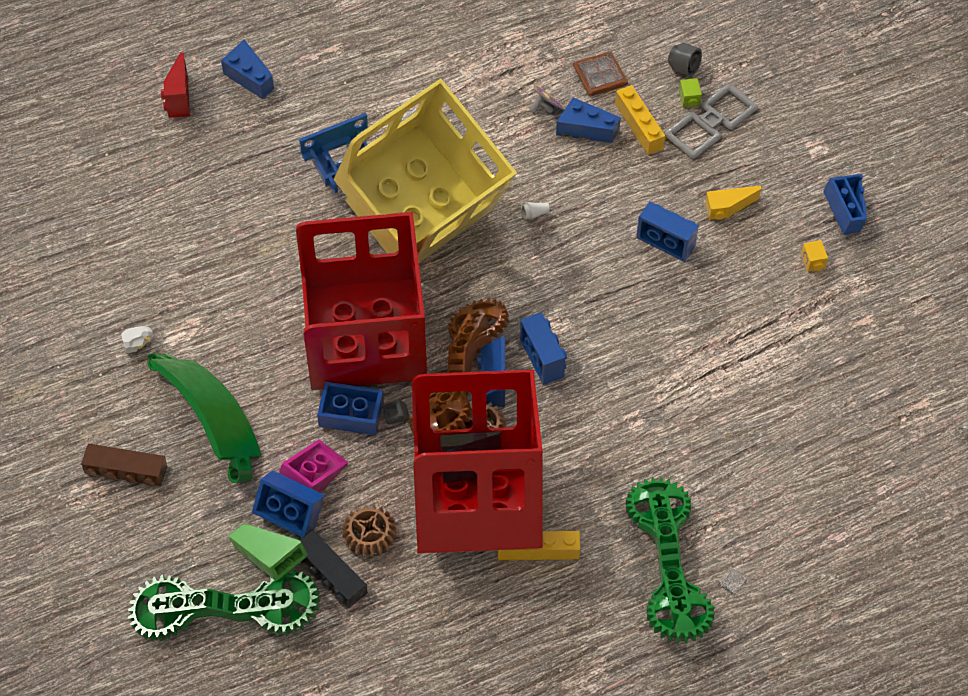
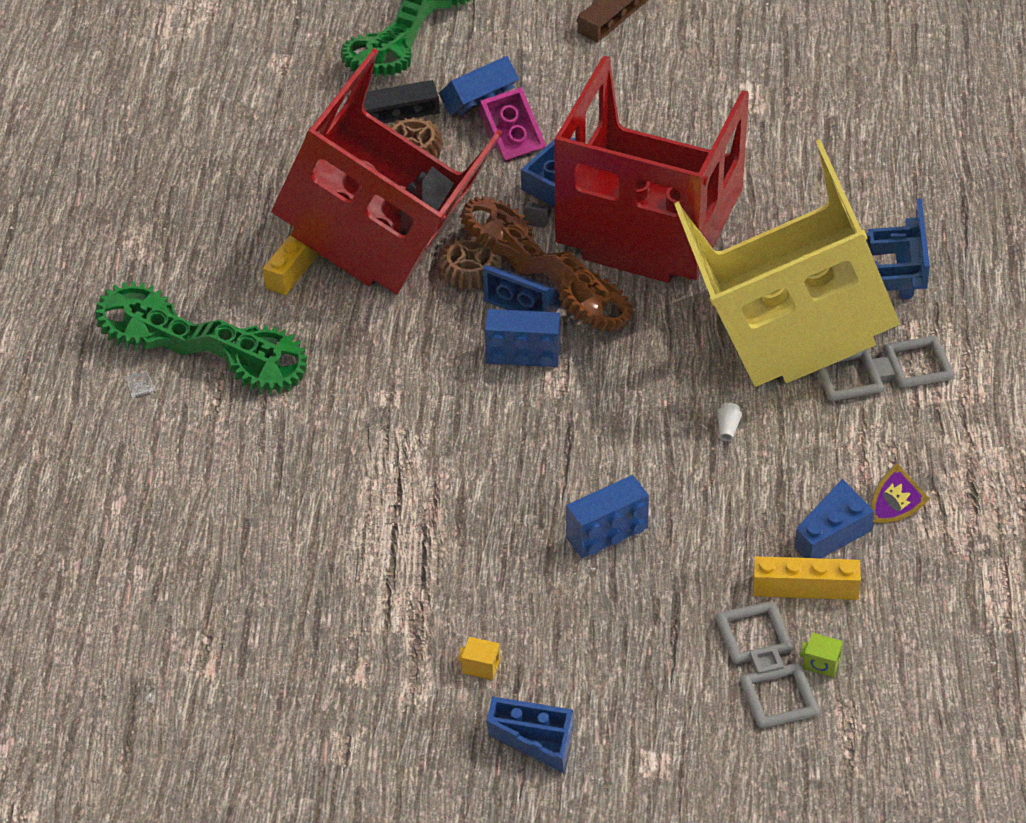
camera: 120 degrees right, 10 degrees down
(136, 338) = (758, 52): white rock -> none
(217, 411) = (641, 62): green panel -> none
(268, 550) = (439, 56): bright green slope -> none
(600, 73) = (915, 581): clear piece -> none
(685, 59) = (882, 668): dark grey piece -> none
(727, 202) = (620, 607): yellow slope -> none

